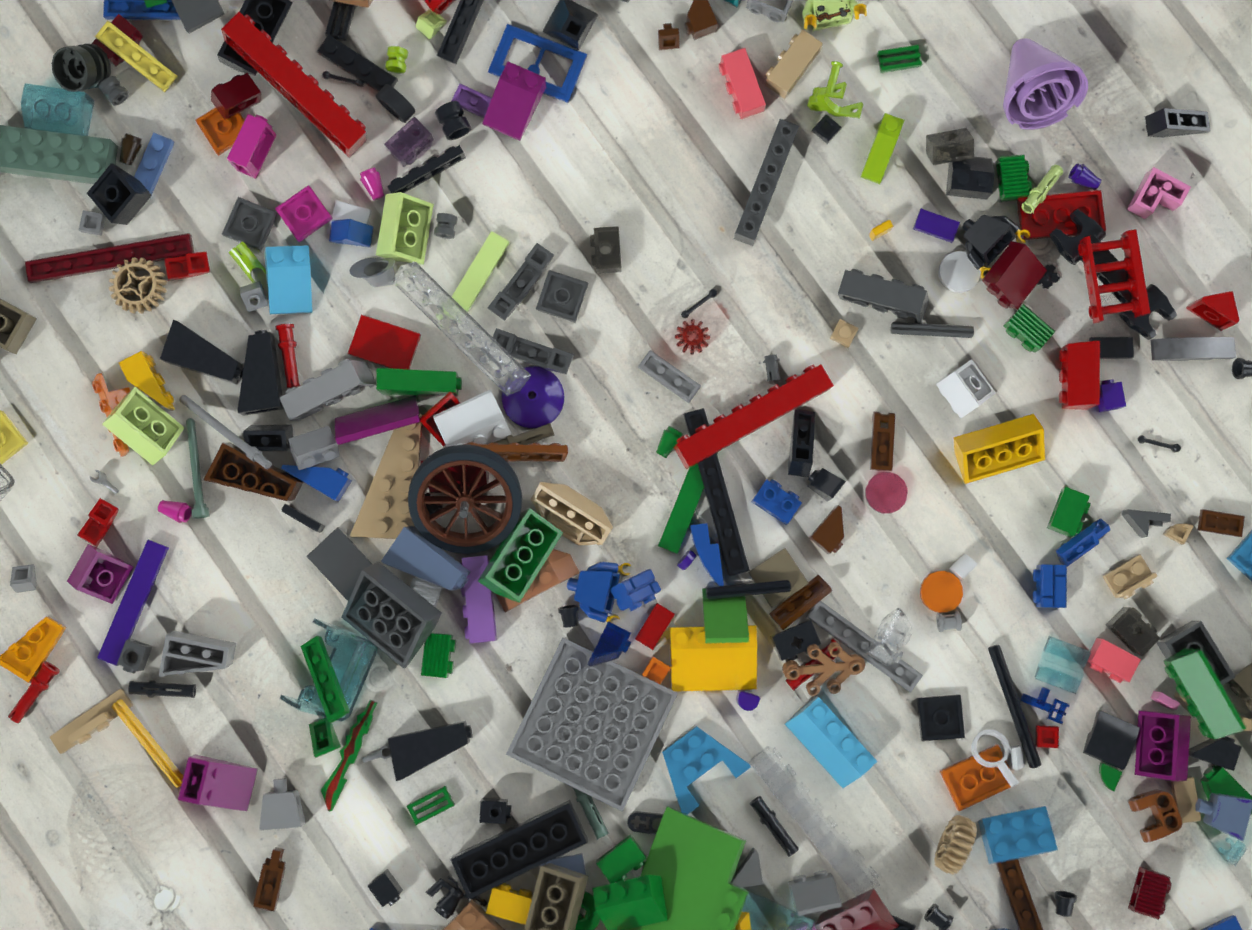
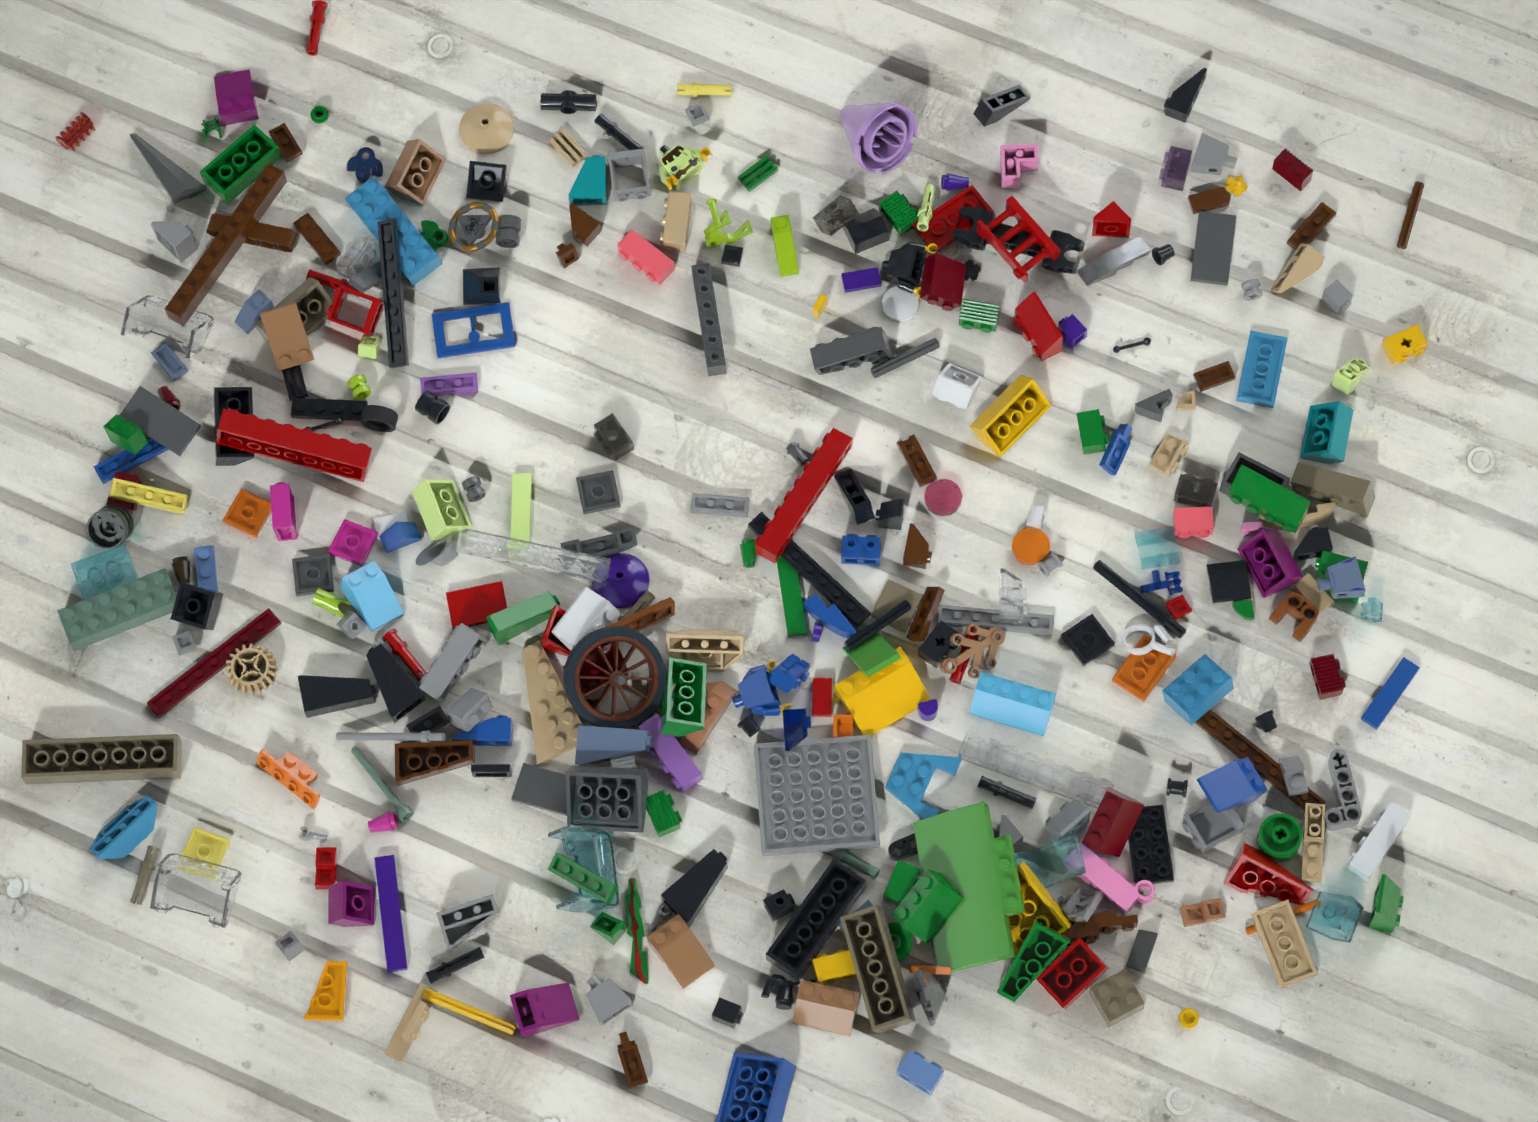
camera: 25 degrees left, 15 degrees down
(38, 684) = (351, 1017): red pin -> none
(112, 88) = (143, 533): dark grey wheel -> none
(141, 373) = (298, 736): yellow slope -> none
(143, 426) = (322, 769): yellowish green slope -> none
(143, 651) = (414, 943): dark grey brick -> none
(187, 266) = (281, 634): red slope -> none
(235, 95) = (246, 482): dark red brick -> none
(372, 182) = (395, 489): dark pink cone -> none
(376, 420) = (507, 661): magenta tile -> none
(376, 801) = (680, 951): none -> medium nougat slope
(409, 142) = (407, 442): clear purple brick -> none
(431, 168) = (437, 450): black plate -> none
(447, 796) = (717, 946): green tile -> none
(514, 100) = (473, 365): magenta slope -> none
(521, 282) = (560, 497): dark grey slope -> none
(694, 344) = (727, 467): clear red gear -> none
(712, 294) = (716, 425): black hinge -> none
(844, 333) = (837, 398): tan plate -> none
(955, 844) = (1153, 721): tan gear -> none
(1050, 586) = (1112, 494): blue brick -> none
(1115, 347) = (1055, 293): black tile -> none

